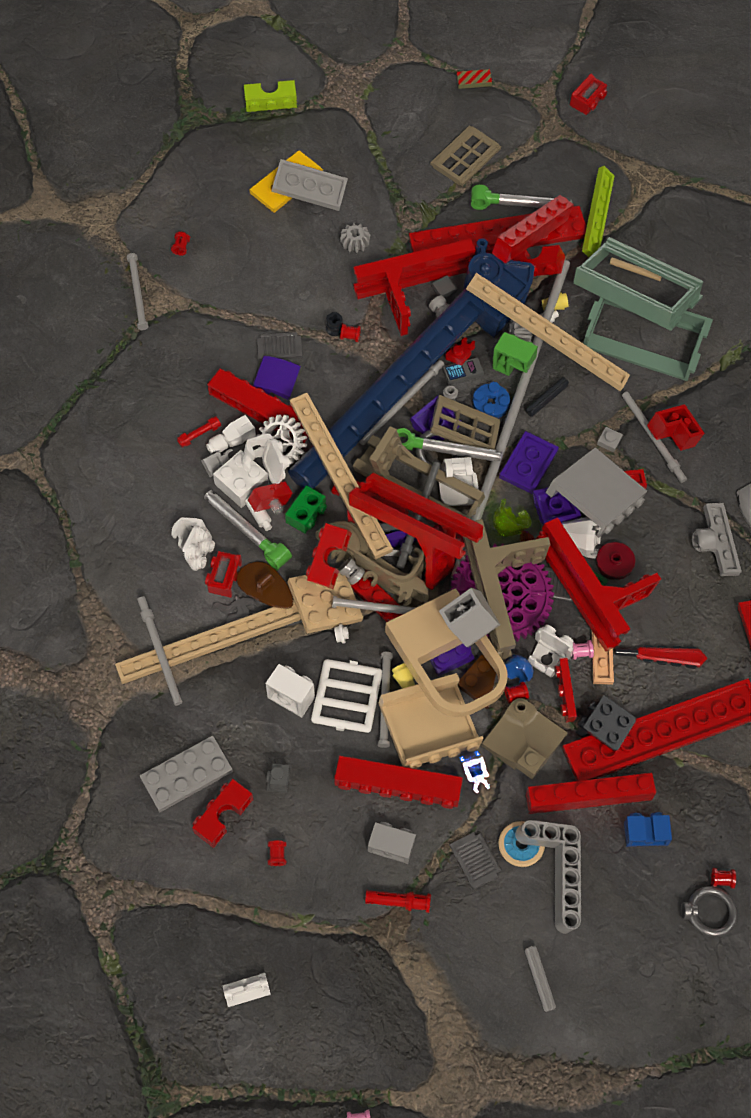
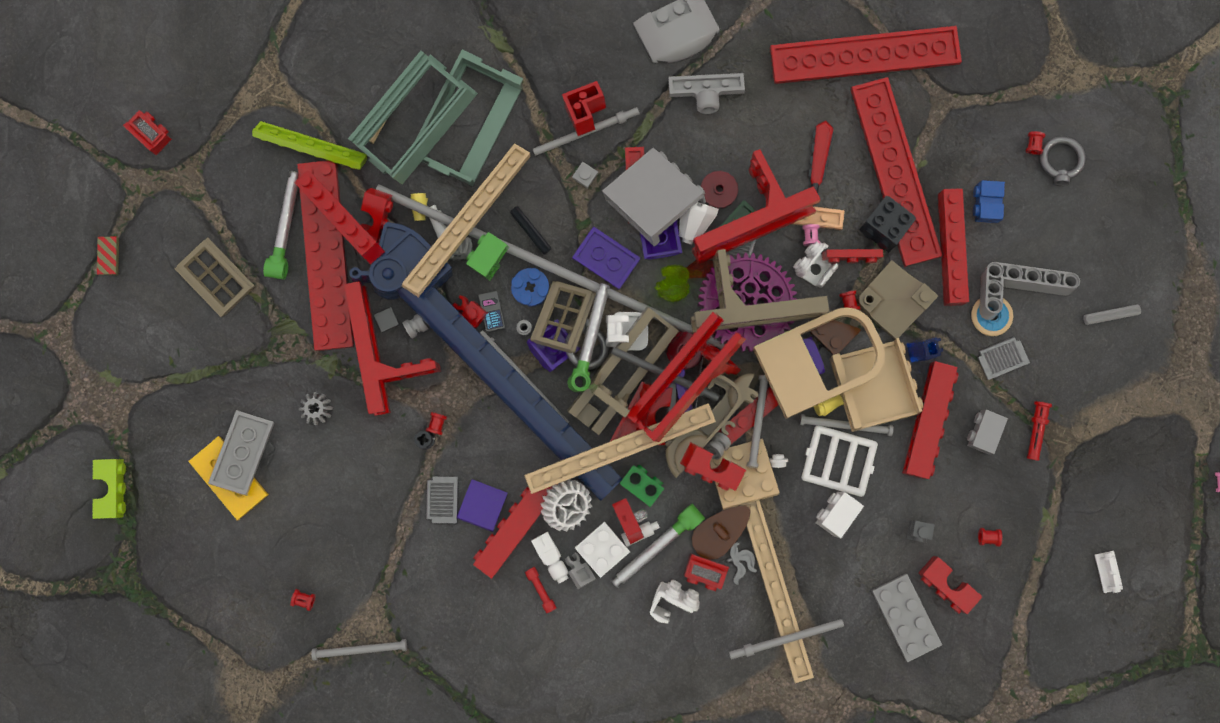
camera: 85 degrees left, 20 degrees up
(273, 459) = (588, 516): white piece -> none
(469, 617) = (796, 336): light grey slope -> none
(519, 667) = (829, 290): blue hair -> none

